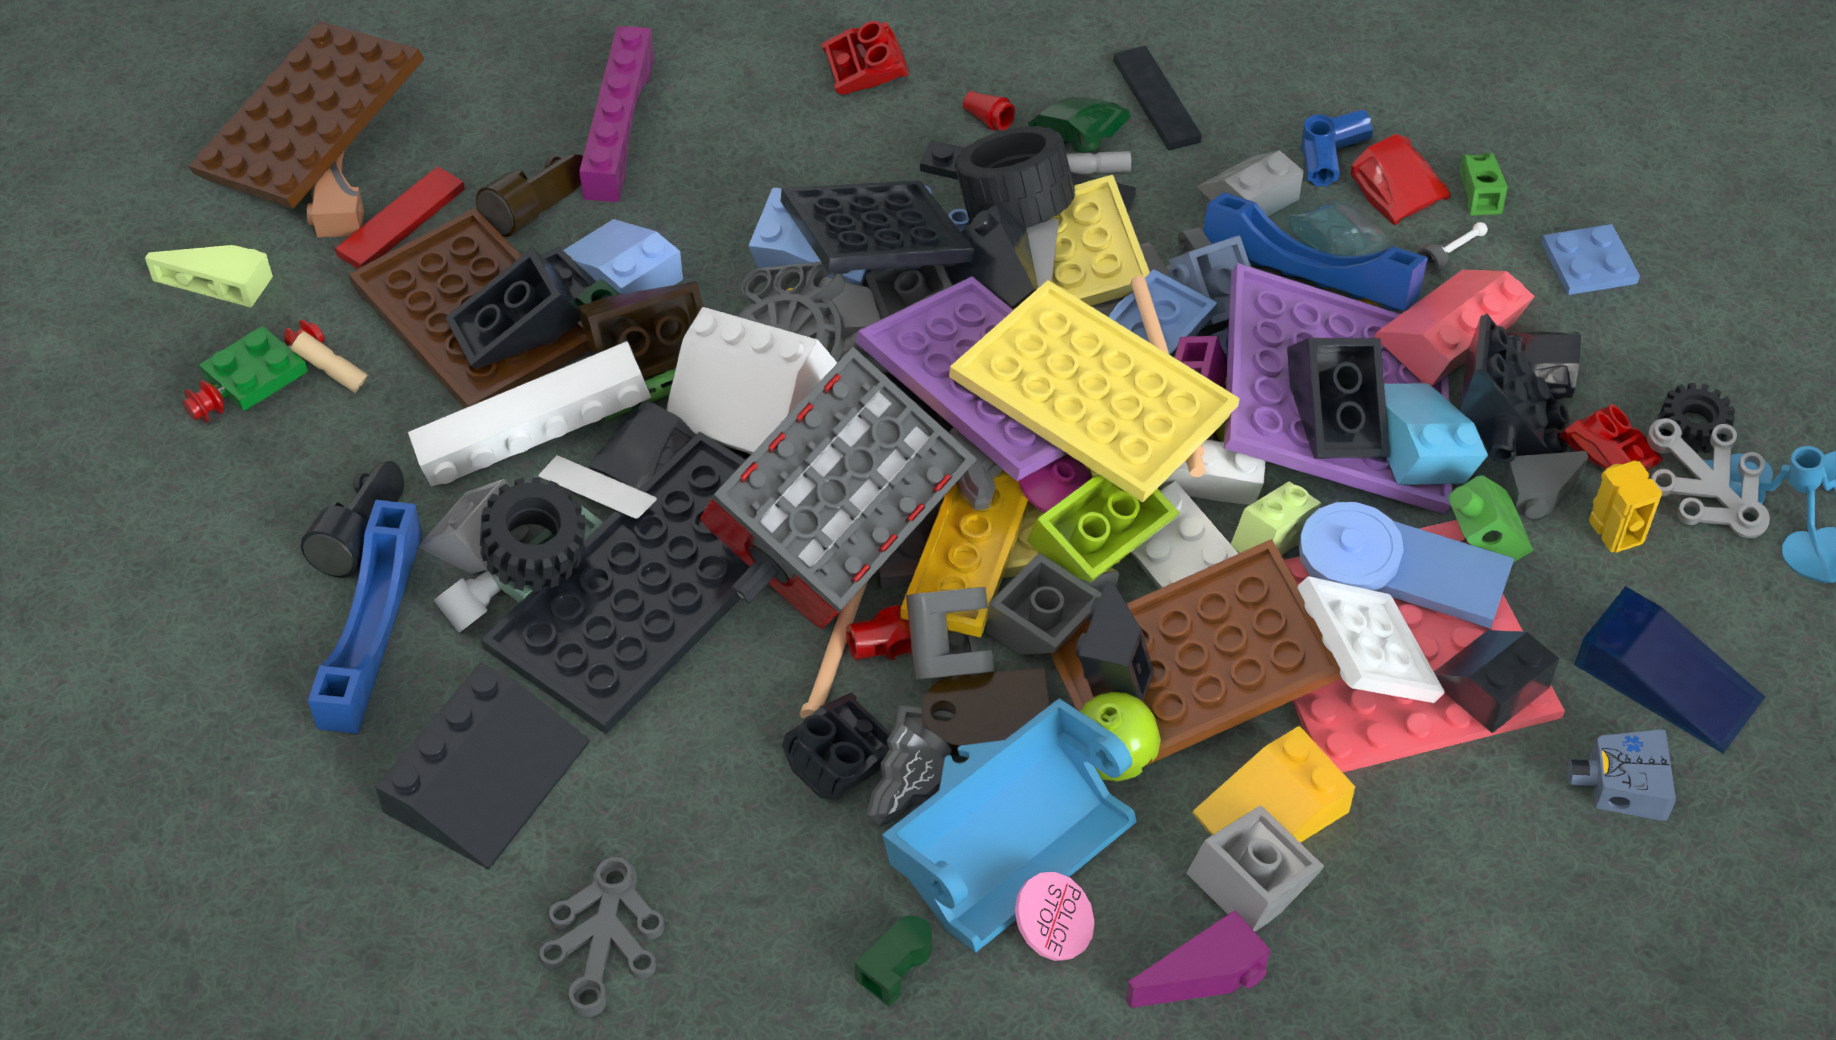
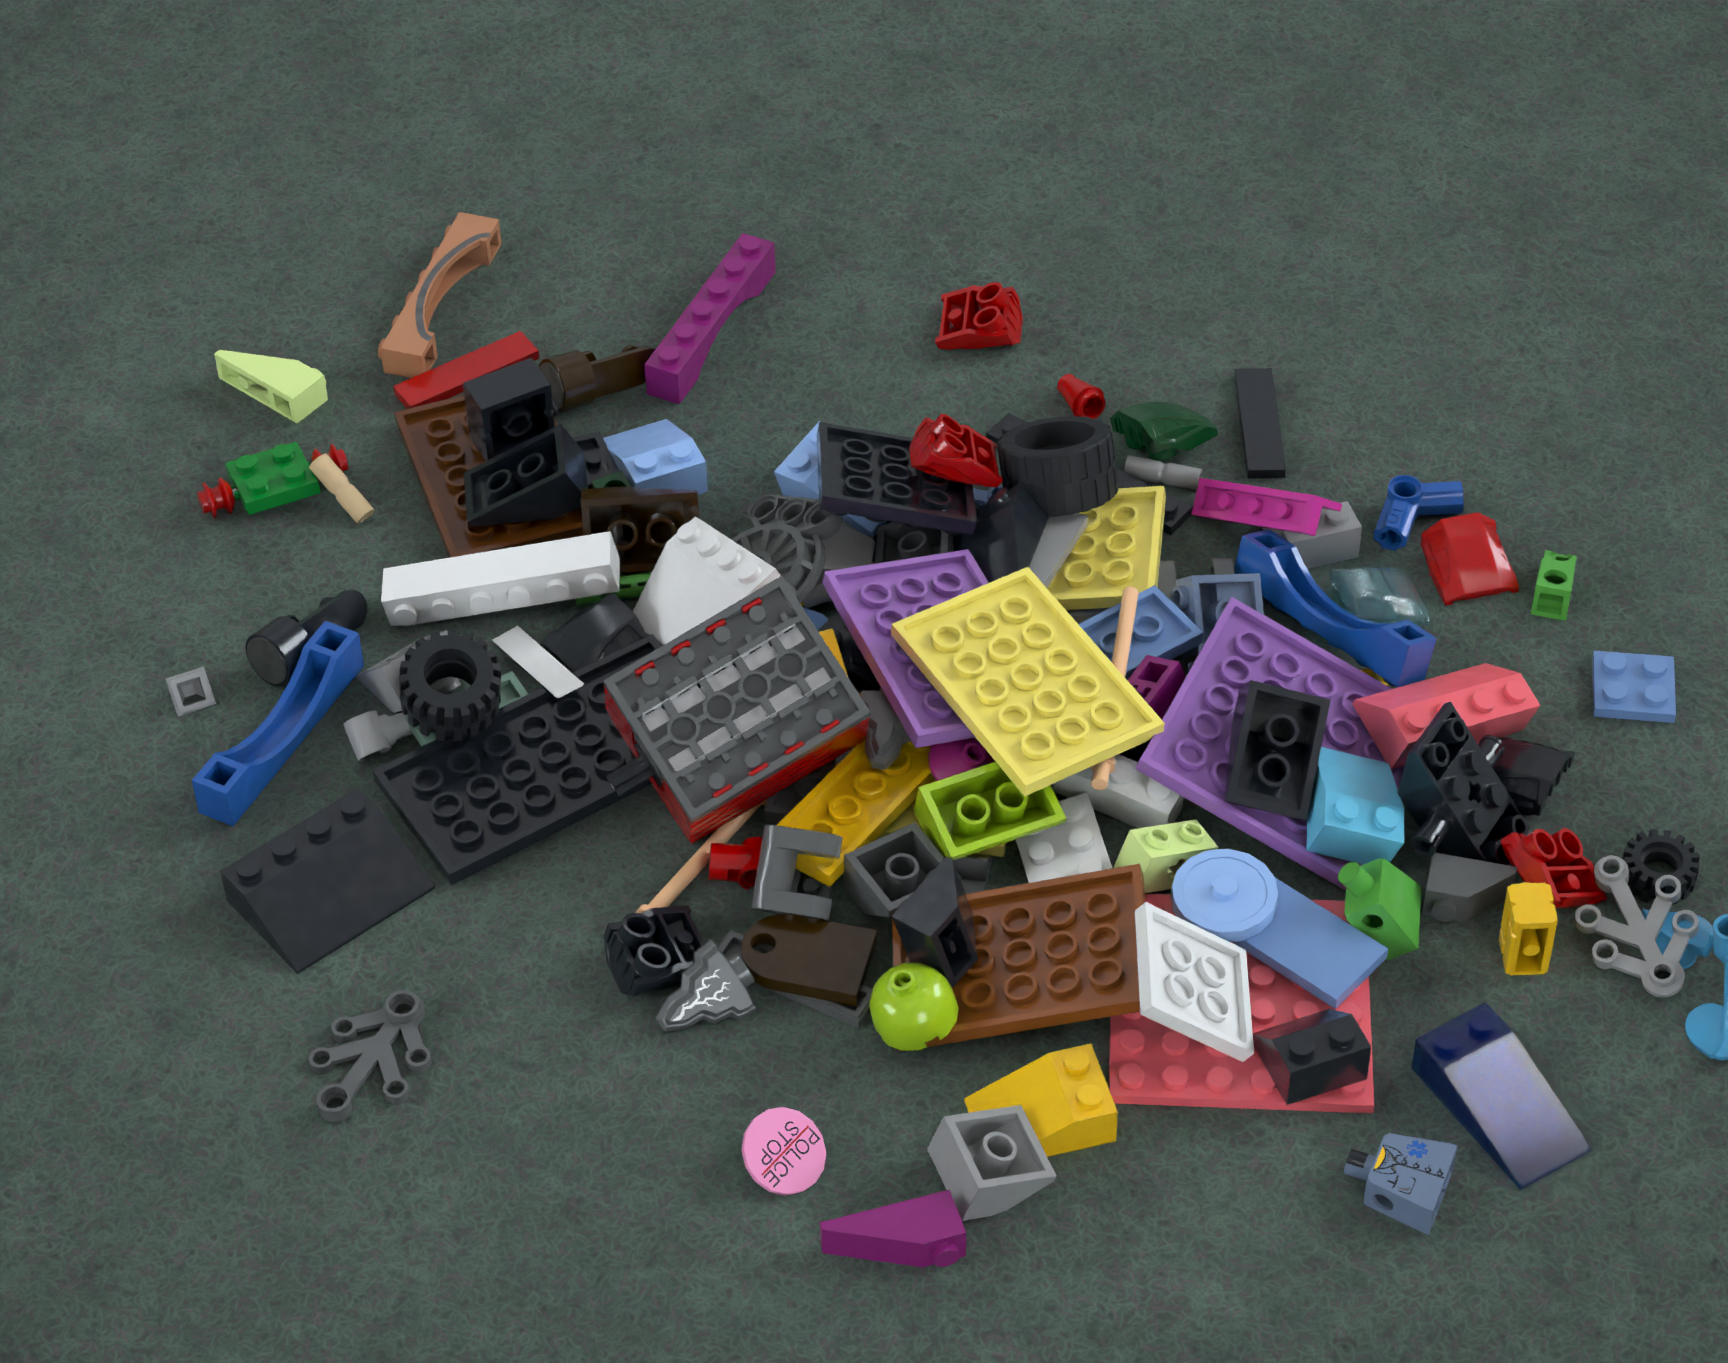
camera: 20 degrees right, 5 degrees down
(252, 599) = (188, 684): none -> light grey slope
(306, 114) = (415, 252): reddish brown plate -> none
(471, 245) = (508, 407): none -> black brick
(892, 956) = (620, 1145): dark green leg -> none
(921, 188) = (954, 452): none -> red slope
(1009, 816) = (772, 1045): dark azure piece -> none
(1207, 173) = (1260, 506): none -> dark pink panel
(1441, 254) = (1473, 644): hinge -> none

